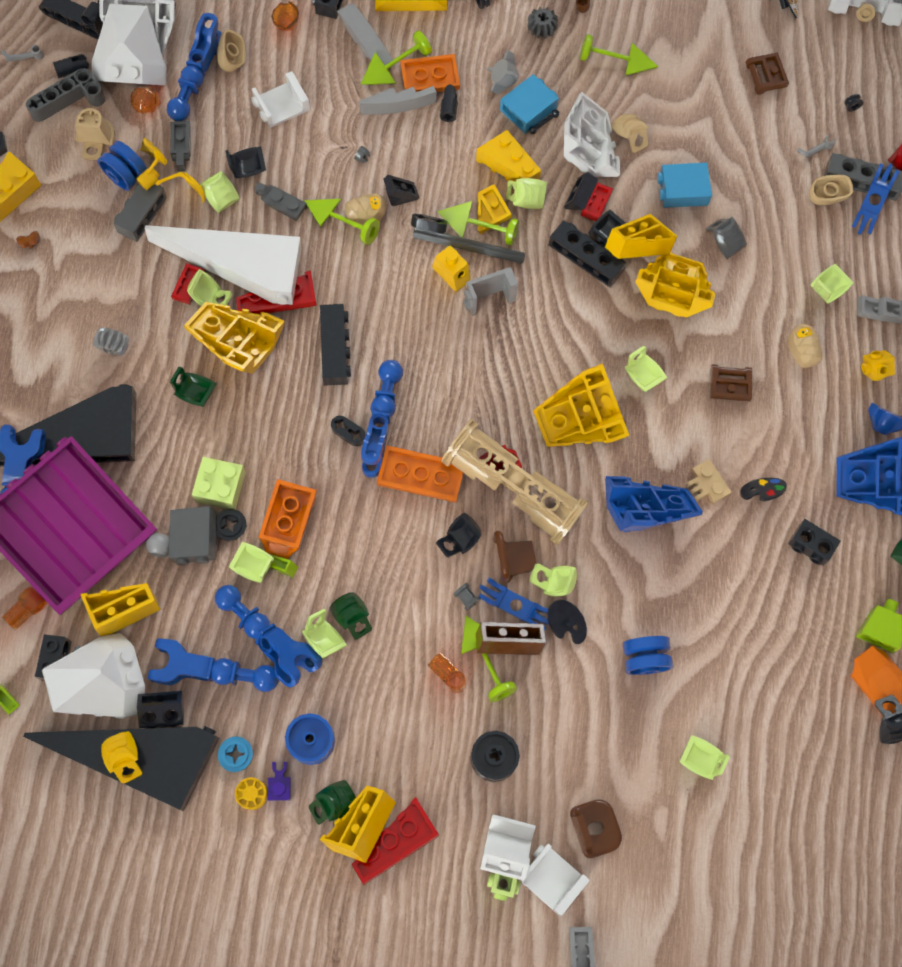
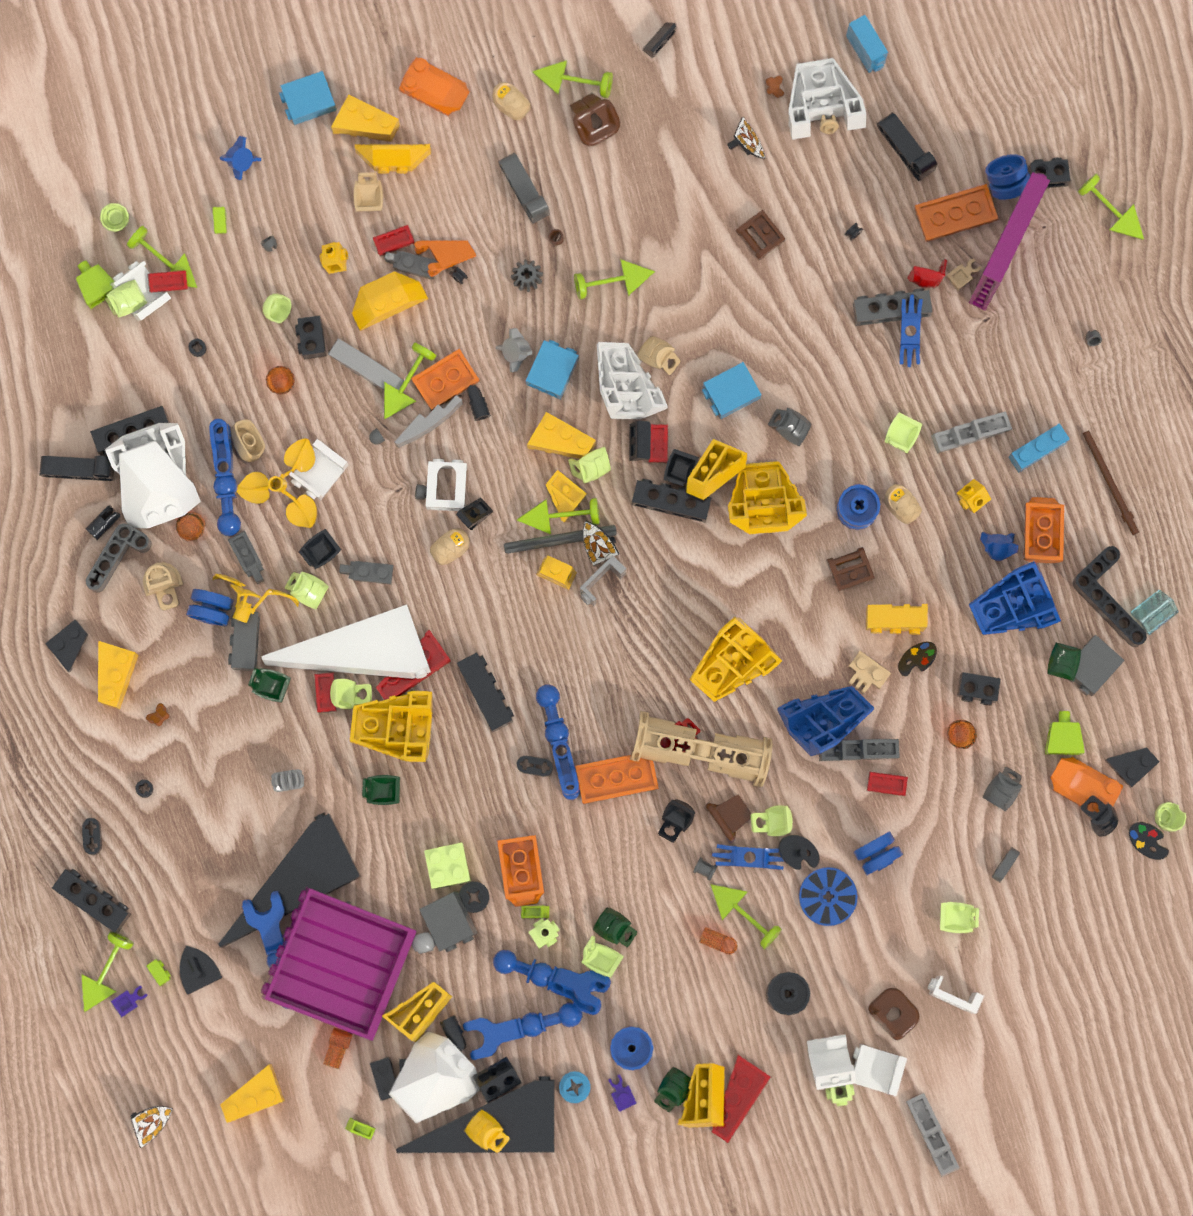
camera: 20 degrees left, 10 degrees up
(35, 52) = (50, 531): light grey piece -> none
(140, 254) = (269, 684): none -> dark green piece
(144, 644) = (454, 1032): none -> black hinge
(219, 91) = (256, 485): none -> yellow plant
(251, 562) = (510, 922): yellowish green piece -> none
(251, 793) = (603, 1113): yellow wheel -> none
(273, 589) = (536, 933): none -> yellowish green brick
(324, 208) = (411, 562): lime piece -> none
(345, 95) = (376, 437): none -> dark grey hinge
(378, 172) = (446, 505): none -> white panel
(429, 223) = (515, 535): black beam -> none
(502, 255) = (598, 543): none -> shield
(510, 638) = (758, 890): reddish brown brick -> none
(555, 113) = (580, 366): black hinge -> none
(563, 687) = (839, 886): none -> blue piece
(644, 370) = (771, 594): yellowish green piece -> none
(670, 551) = (862, 750): none -> dark grey slope
(677, 855) = (971, 1006): none -> white panel
(684, 594) = (887, 783): none -> red plate
(759, 443) = (896, 618): none -> yellow wedge
(762, 329) = (866, 499): none -> blue wheel
(773, 727) = (1005, 864): none -> dark grey beam
(779, 578) = (961, 734): none -> clear orange hair
(800, 651) = (1003, 789): none -> dark grey piece
(826, 144) = (838, 294): light grey piece -> none
(830, 189) = (867, 337): tan piece -> none

